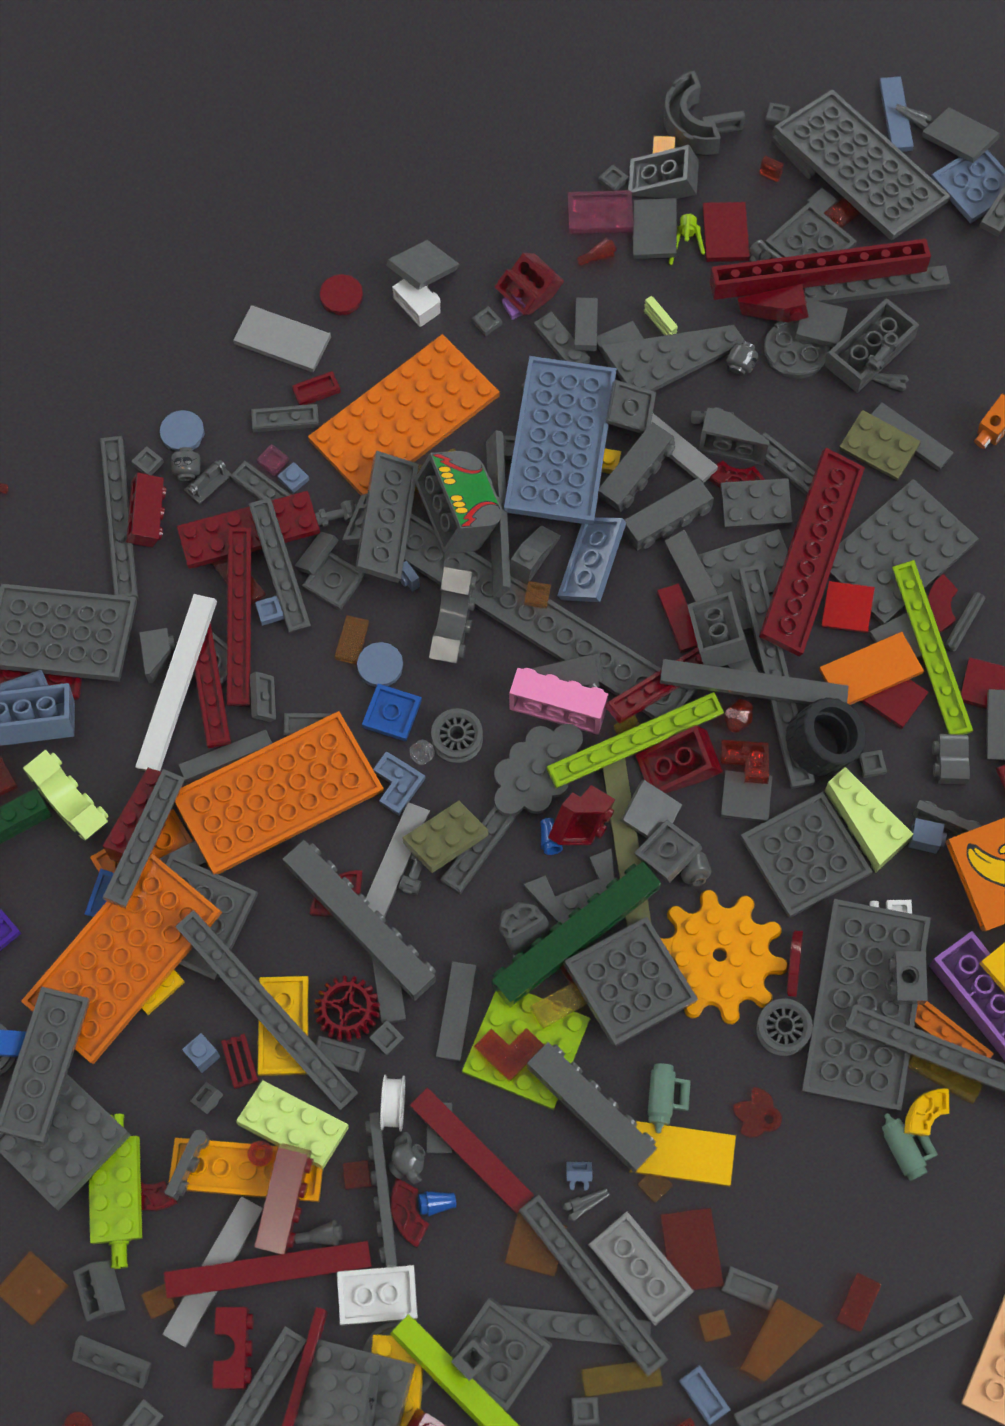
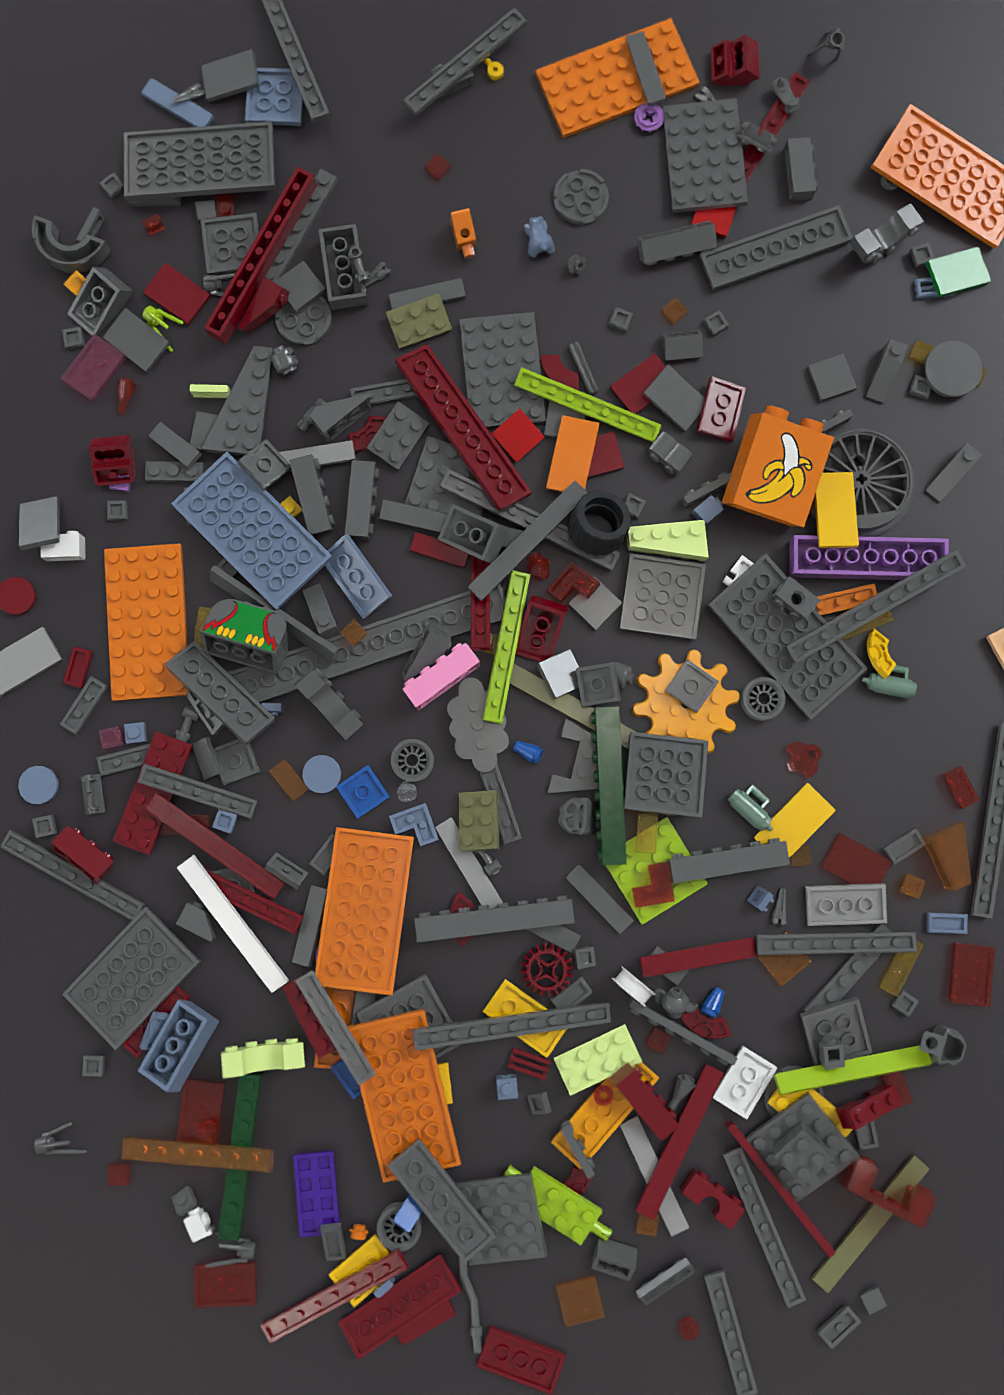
camera: 55 degrees left, 15 degrees up
(185, 464) = (68, 801): dark grey head -> none
(582, 818) = (536, 723): dark red piece -> none
(739, 944) = (691, 686): none -> dark grey tile
(795, 961) = (734, 666): dark red tile -> none

